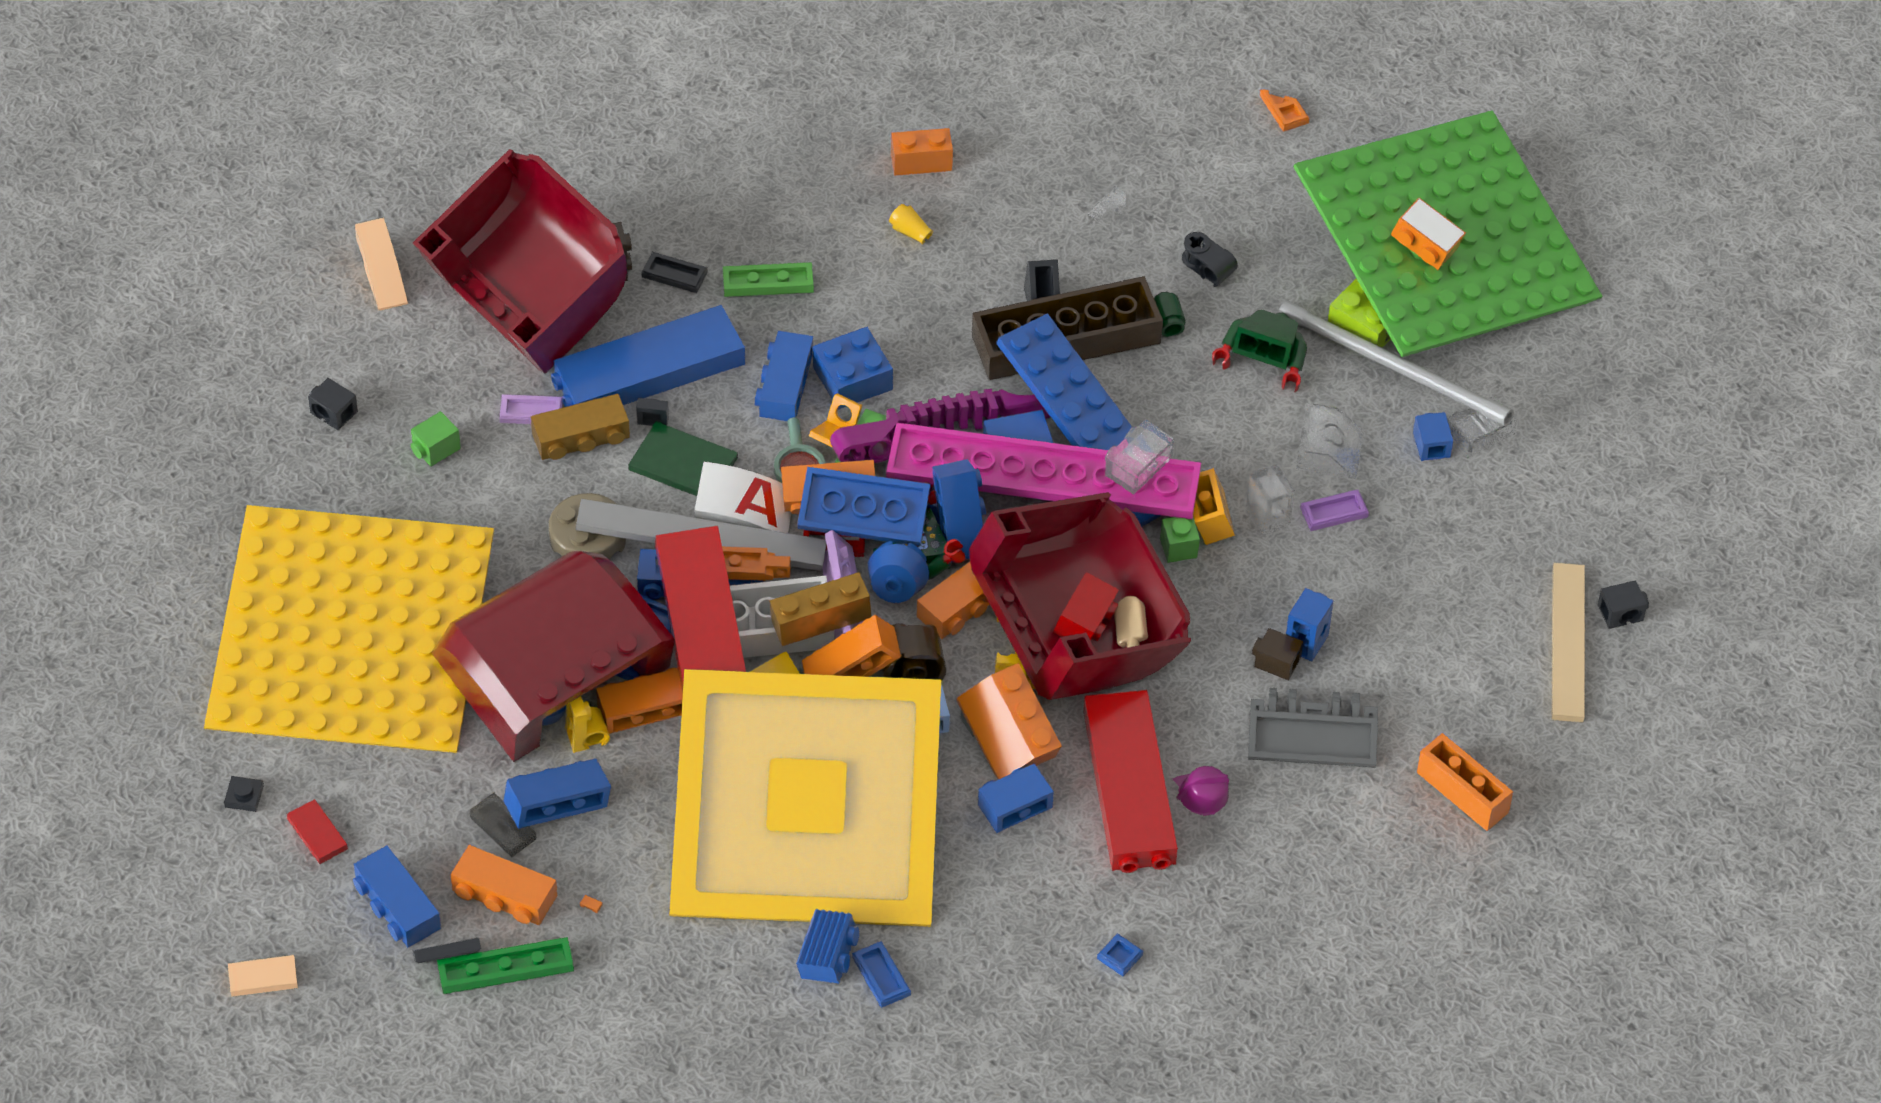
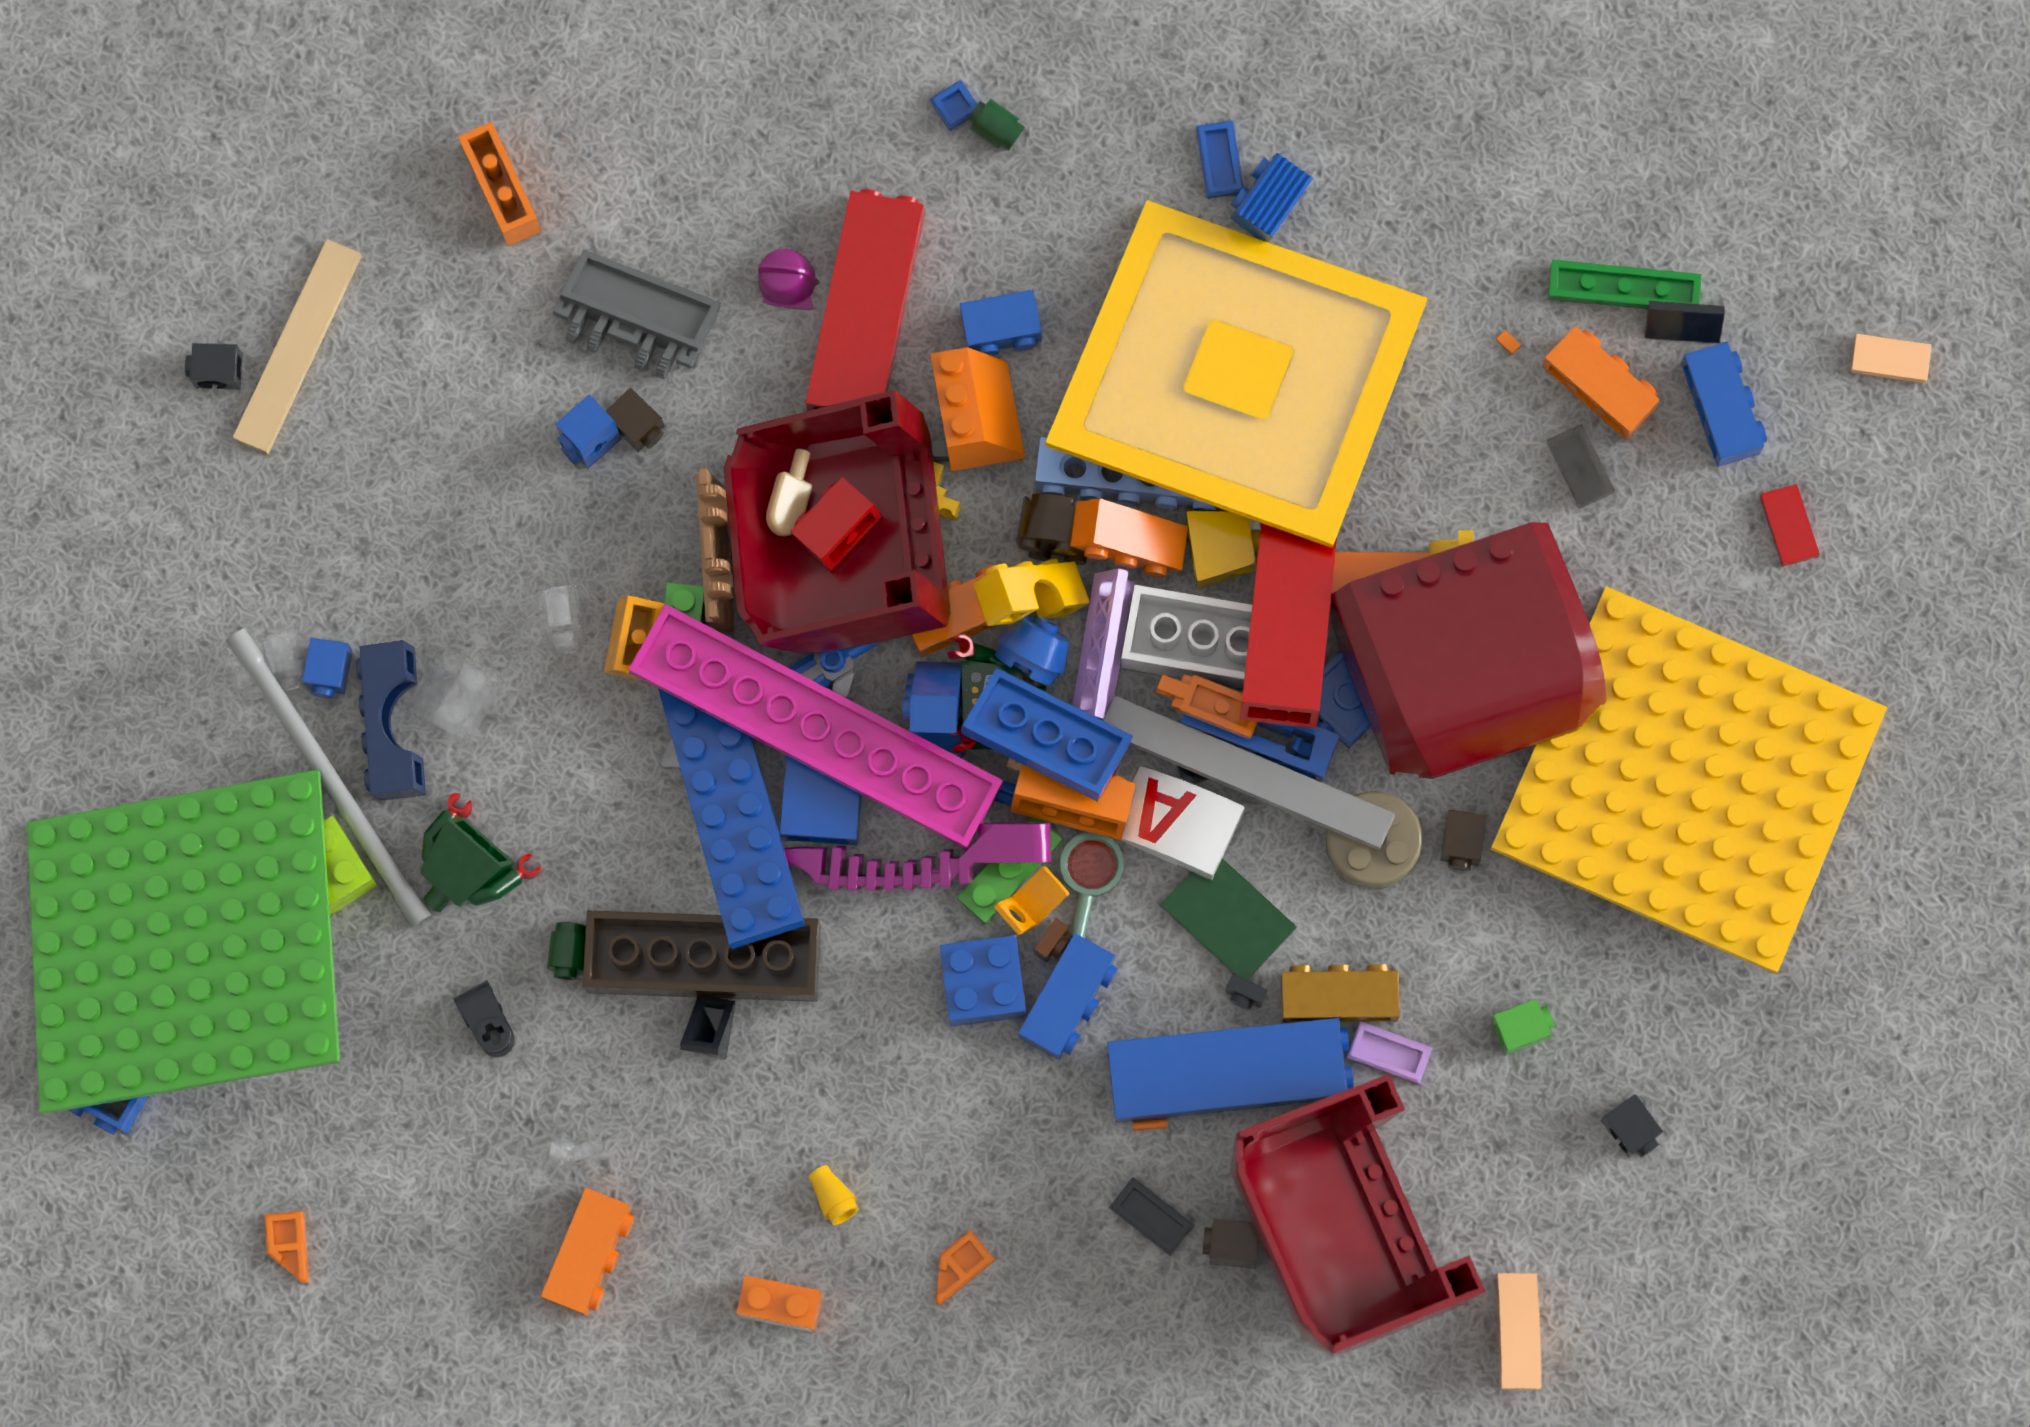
camera: 155 degrees left, 25 degrees up
(243, 793) = (1861, 600): black plate -> none
(518, 548) = (1463, 839): none -> dark brown brick
(557, 793) = (1512, 476): blue brick -> none
(768, 279) = (1039, 1162): bright green plate -> none
(801, 212) = (960, 1265): none -> orange tile
(810, 406) = (1053, 941): none -> reddish brown plate
(820, 609) = (1149, 588): pearl gold brick -> none
(930, 583) = (1017, 591): none -> yellow arch
(1070, 149) = (588, 1252): none -> orange brick
(1079, 940) = (995, 124): none -> dark green brick
(1139, 456) = (702, 685): clear brick -> none
(1178, 569) = (715, 559): none -> medium nougat hinge
(1334, 510) = (485, 607): medium lavender tile -> none
(1352, 388) = (386, 675): none -> dark blue arch
(1428, 233) = (216, 911): brick -> none

